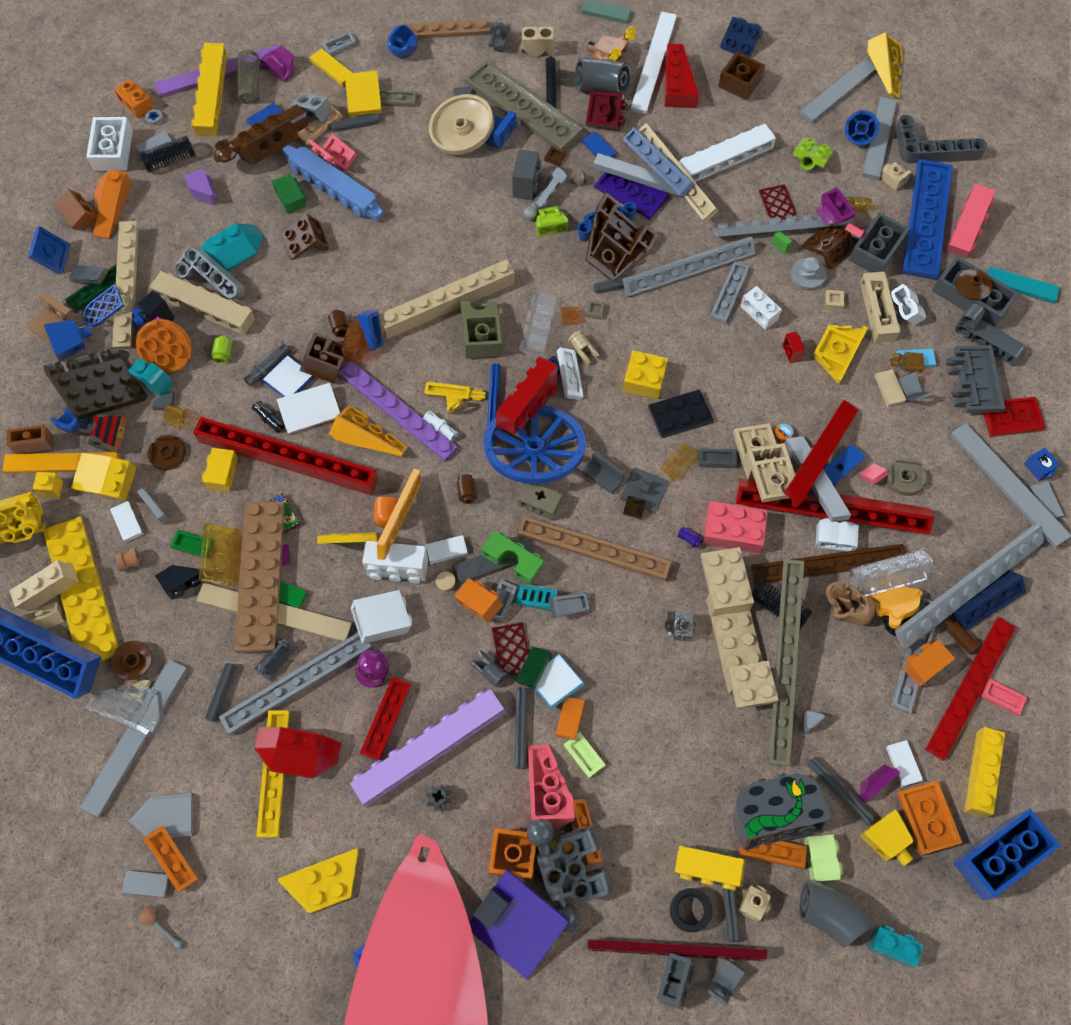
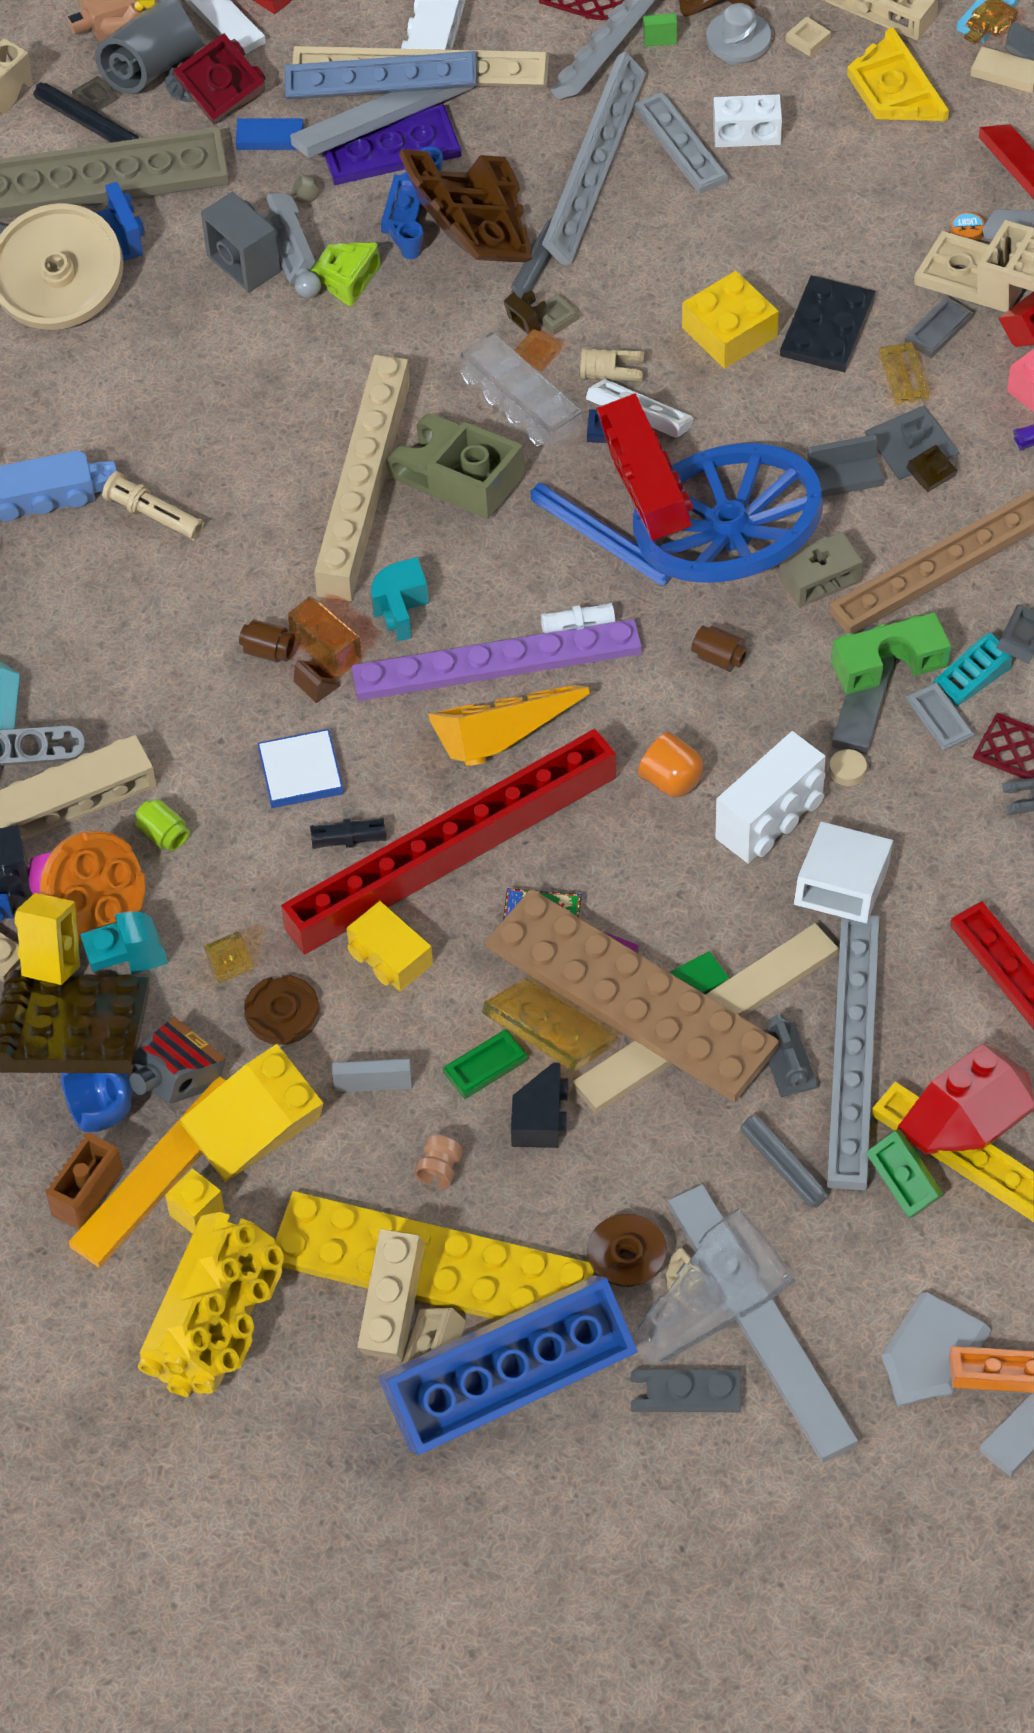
camera: 50 degrees left, 10 degrees down
(82, 732) = (688, 1391): none -> dark grey hinge
(125, 347) = (47, 938): none -> yellow brick
(126, 521) = (361, 1133): white tile -> none
(163, 400) = (183, 961): dark grey tile -> none
(242, 746) = (904, 1173): none -> plate
(260, 370) = (251, 792): dark grey pin -> none
(303, 235) = (52, 599): reddish brown bracket -> none
(308, 408) = (386, 768): white tile -> none
(319, 361) = (318, 699): reddish brown brick -> none
(348, 537) = (676, 834): yellow tile -> none
(371, 328) = (319, 587): blue slope -> none
(371, 667) = (914, 928): magenta helmet -> none
(374, 232) = (138, 496): none -> tan pin
(398, 514) = (705, 736): light orange tile -> none
(400, 350) = (395, 591): none -> teal brick
(446, 549) = (801, 719): white tile -> none
(454, 394) = (537, 570): yellow piece -> none
(478, 600) = (922, 736): orange brick -> none
(555, 156) = (225, 187): reddish brown tile -> none
(582, 296) = (522, 313): none -> dark brown tile
(793, 347) = (847, 126): red piece -> none

